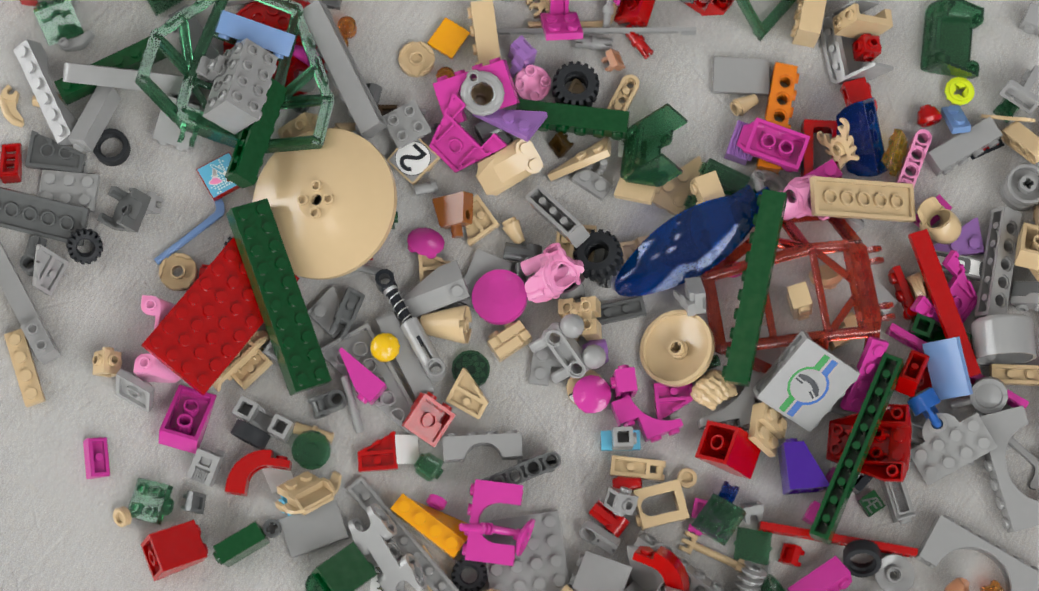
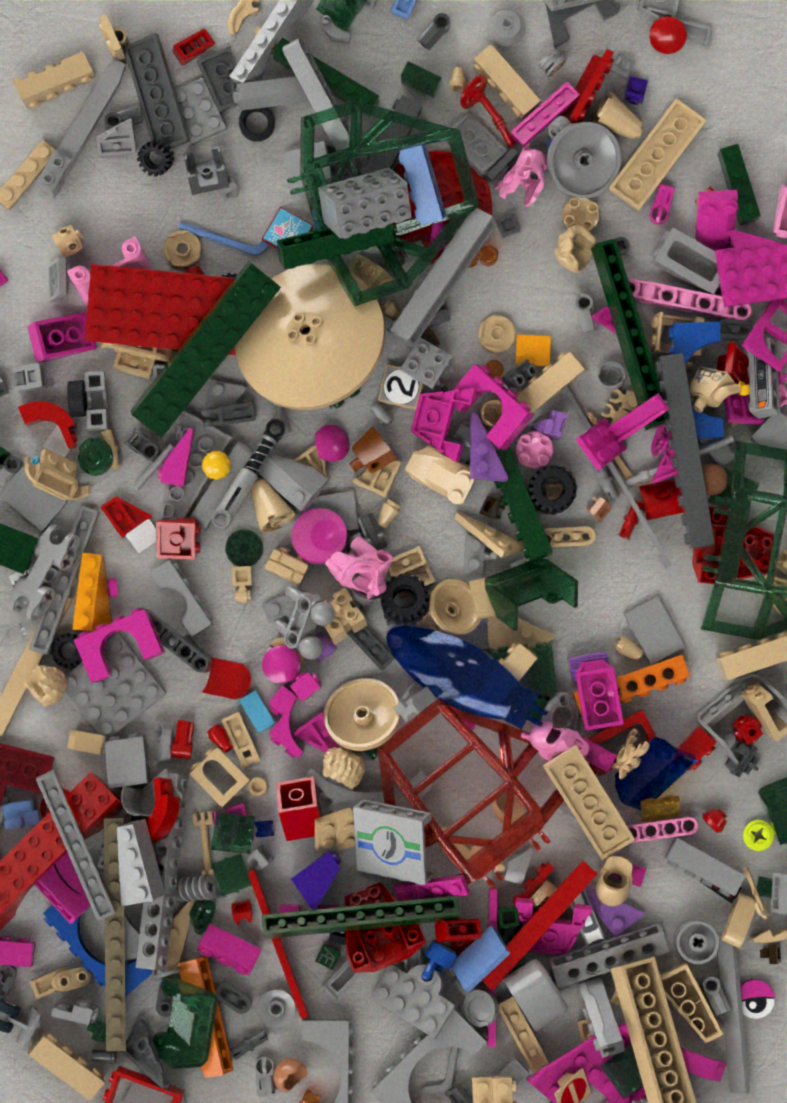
camera: 65 degrees right, 10 degrees up
(210, 67) = (368, 165): light grey bracket -> none
(429, 467) = (138, 563): clear green head -> none
(463, 56) = (519, 375): none -> dark grey hips
(467, 395) = (218, 560): tan wing -> none
(495, 386) = (240, 578): none -> tan plate
(496, 85) = (504, 412): light grey piece -> none
(521, 535) = (121, 675): dark pink dish -> none
(557, 216) = (417, 543): light grey brick -> none
(579, 447) = (228, 679): none -> red piece
(621, 501) = (200, 741): light grey brick -> none
(623, 438) = (256, 713): light grey brick -> none
(628, 219) = (456, 597): none -> tan dish
(755, 287) = (446, 752): dark green brick -> none
(799, 301) = (464, 797): tan arch -> none
(862, 547) = (280, 971): black tyre -> none
(894, 75) = (747, 753): none -> dark grey hips
(955, 119) = (725, 846): medium blue plate -> none

